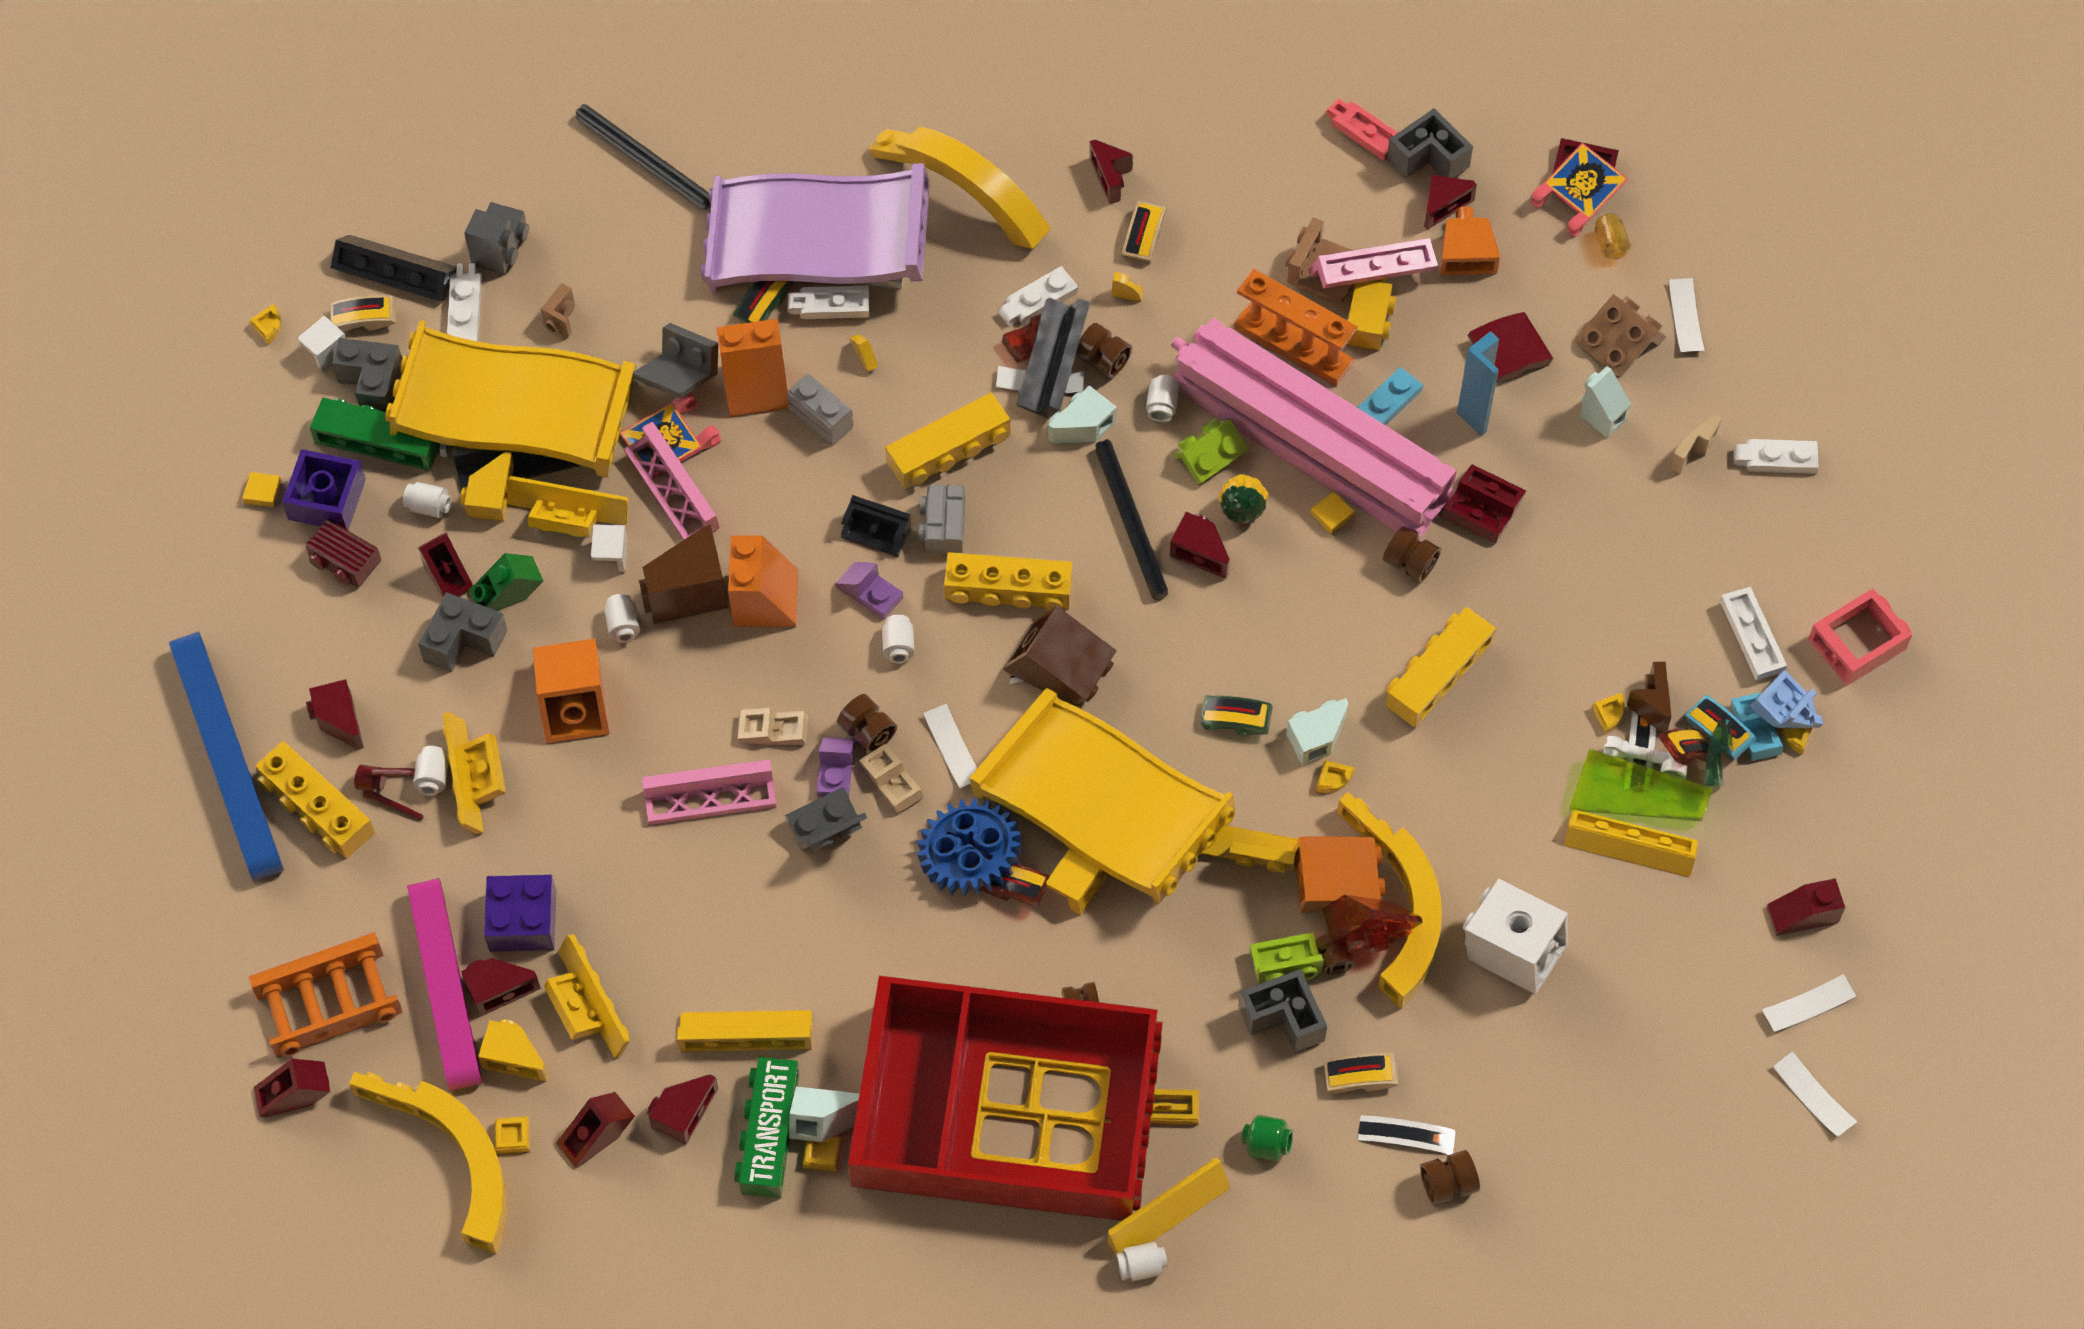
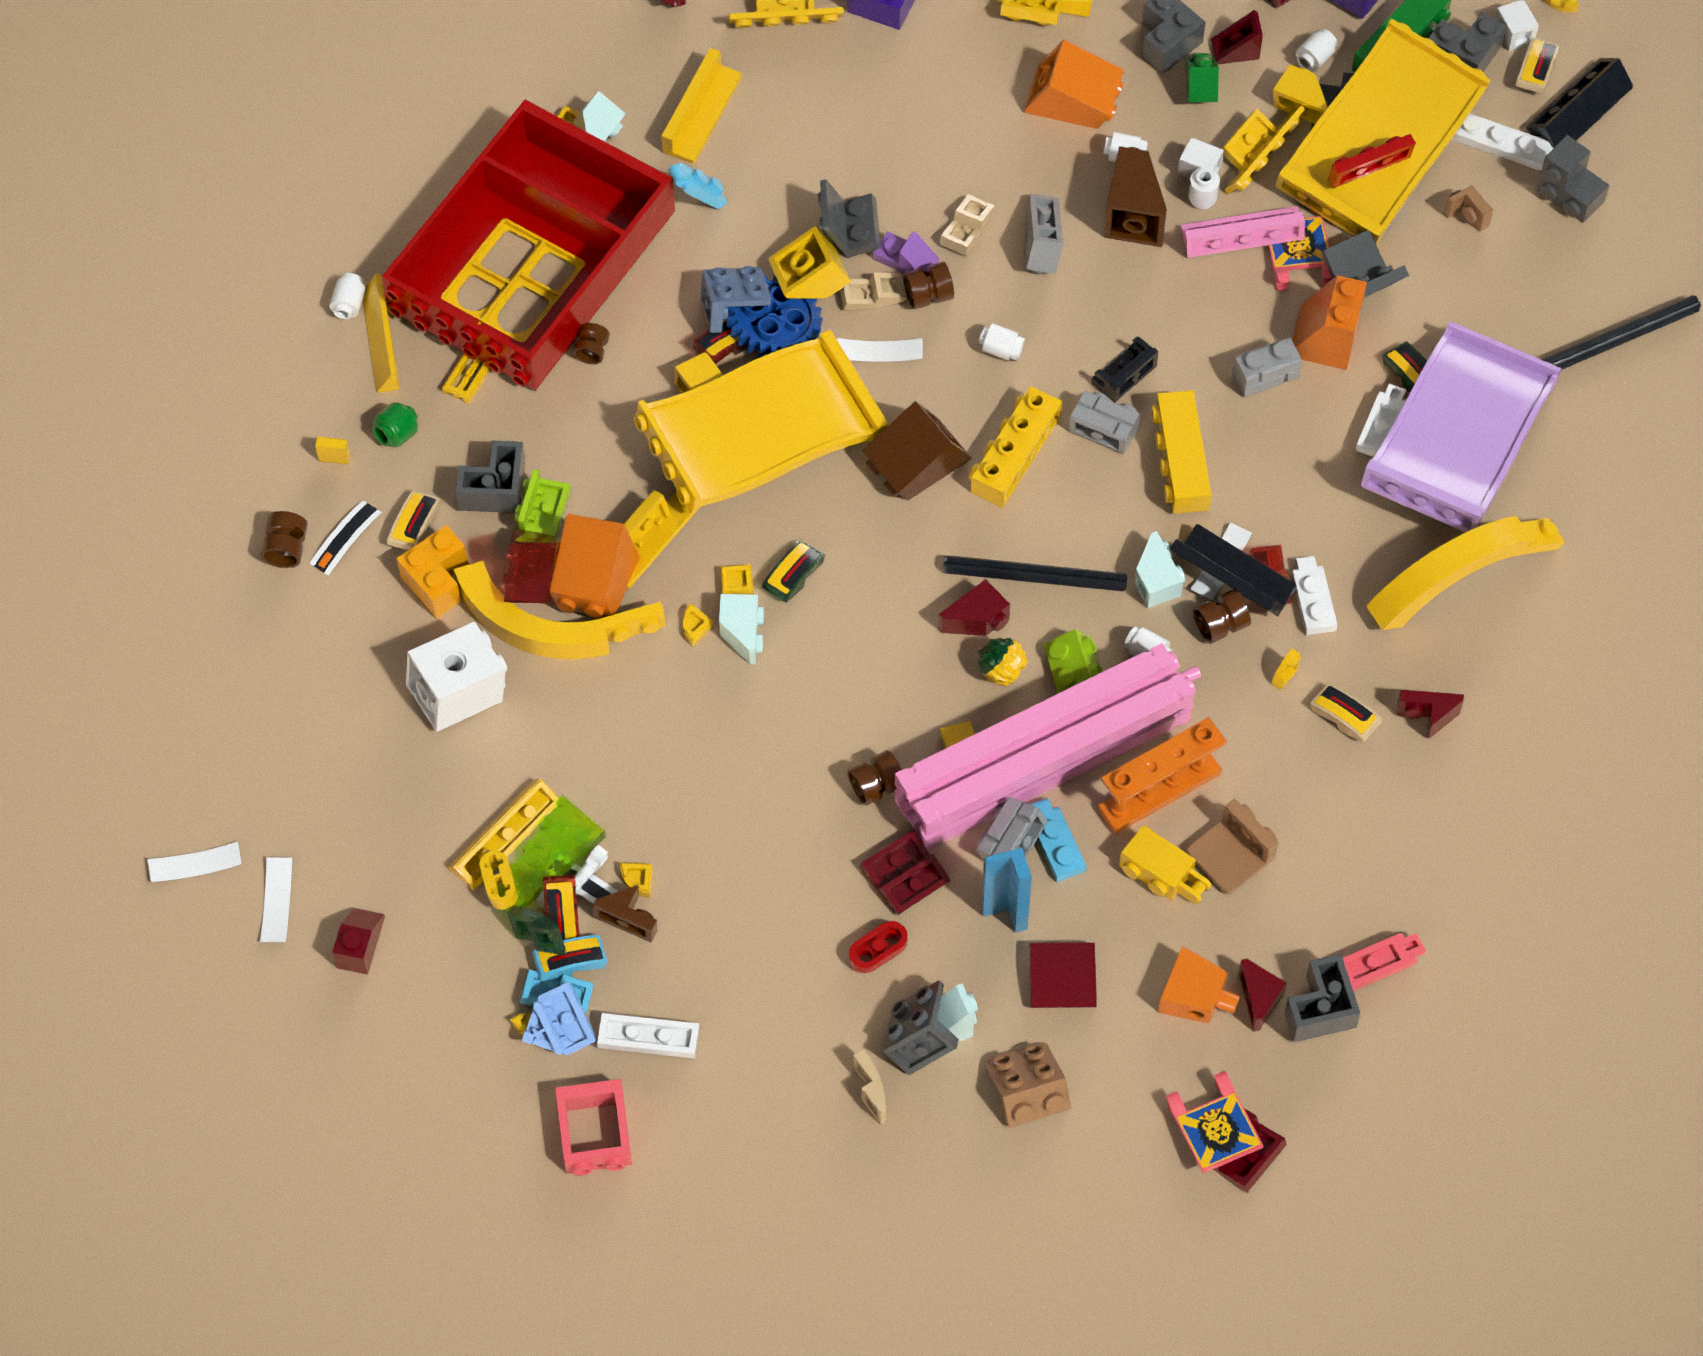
camera: 115 degrees right, 0 degrees up
(562, 384) = (1371, 160): none -> red plate
(641, 530) = (1203, 188): none -> white brick
(682, 1107) = (654, 39): dark red slope -> none
(707, 781) = (932, 161): bright pink fence -> none
(756, 650) = (1043, 234): none -> light grey slope
(761, 584) = (1101, 249): orange slope -> none
(767, 1132) = (582, 77): green brick -> none
(855, 971) = (698, 185): none -> medium azure hinge
(864, 352) = (1315, 426): yellow tile -> none
(869, 589) = (1068, 343): medium lavender slope -> none
(903, 833) = (809, 267): none -> yellow slope
(970, 885) = (731, 288): none -> sand blue bracket
(1269, 761) = (737, 579): none -> yellow tile
(1325, 1185) = (333, 450): none -> yellow tile
(1374, 263) = (1203, 880): bright pink fence -> none
(1407, 1029) = (429, 570): none -> light orange brick
(1415, 423) = (1013, 827): none -> light grey brick
(1440, 666) = (749, 747): yellow brick -> none
(1568, 491) = (877, 948): none -> red plate
(1612, 236) = (1144, 1128): clear yellow brick -> none
(1627, 423) = (914, 1032): none -> dark grey bracket
(1685, 315) = (1023, 1160): white sticker -> none
(1693, 816) = (493, 881): none -> yellow beam
(1777, 456) = (825, 1162): white hinge -> none

